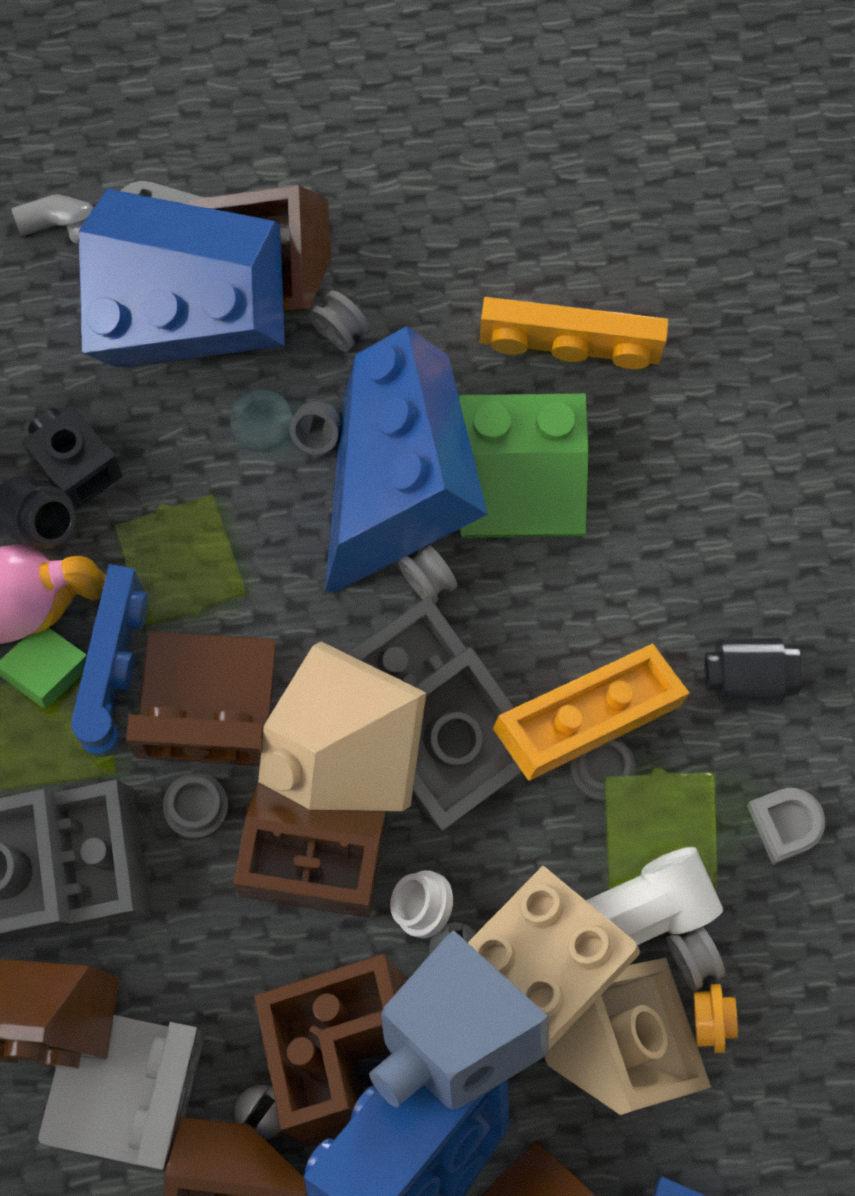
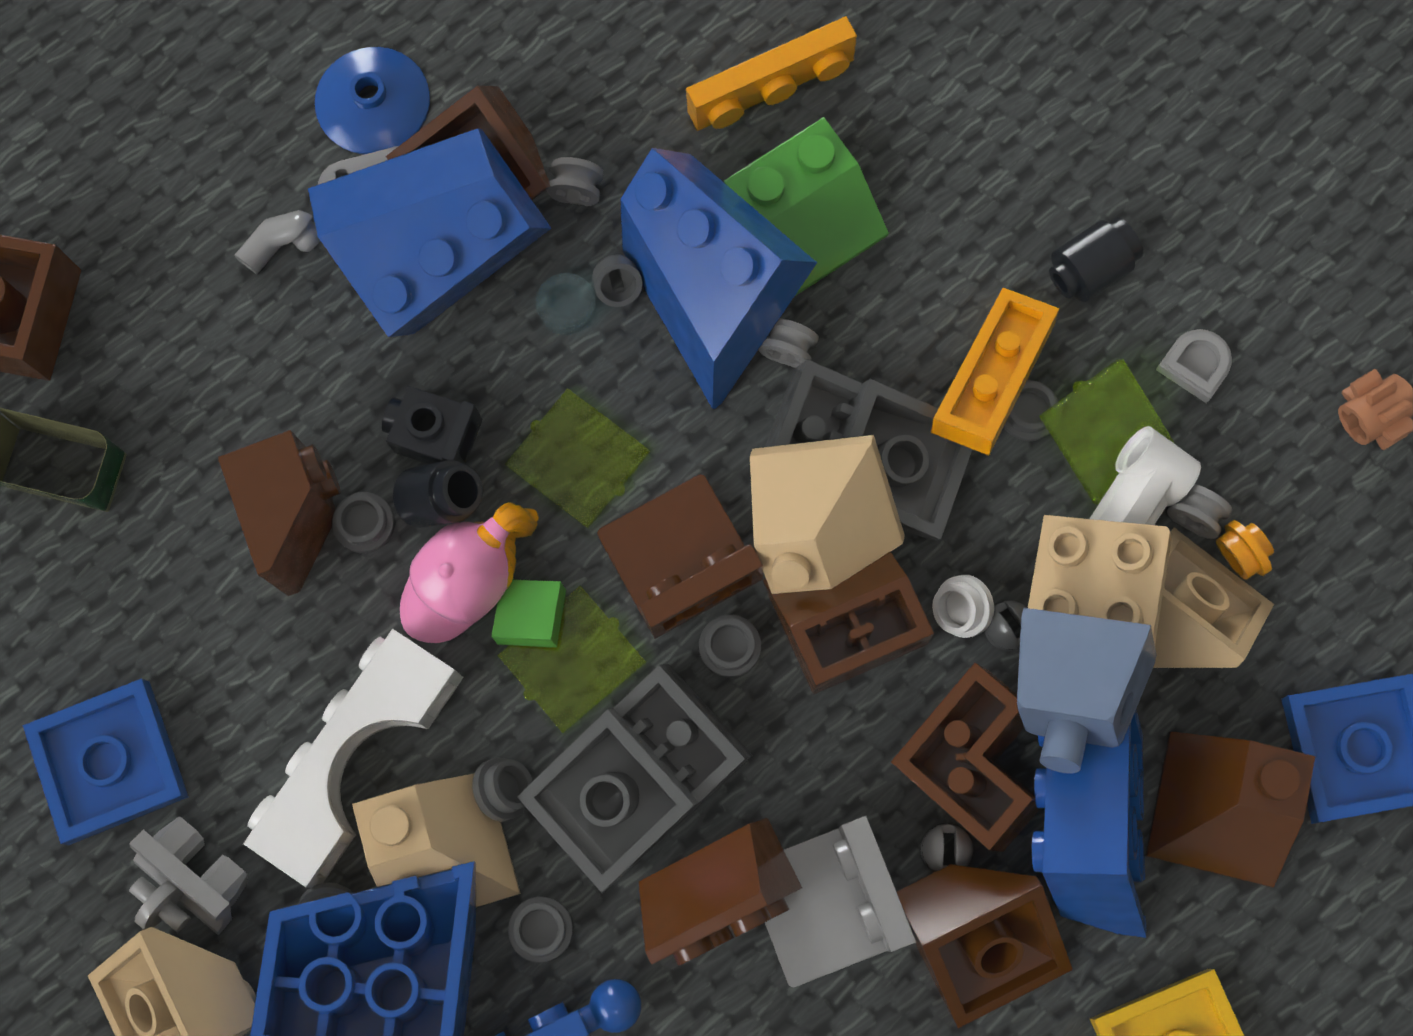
camera: 25 degrees left, 5 degrees up
(108, 662) = (586, 576): blue plate -> none
(221, 169) = (377, 121): none -> blue dish

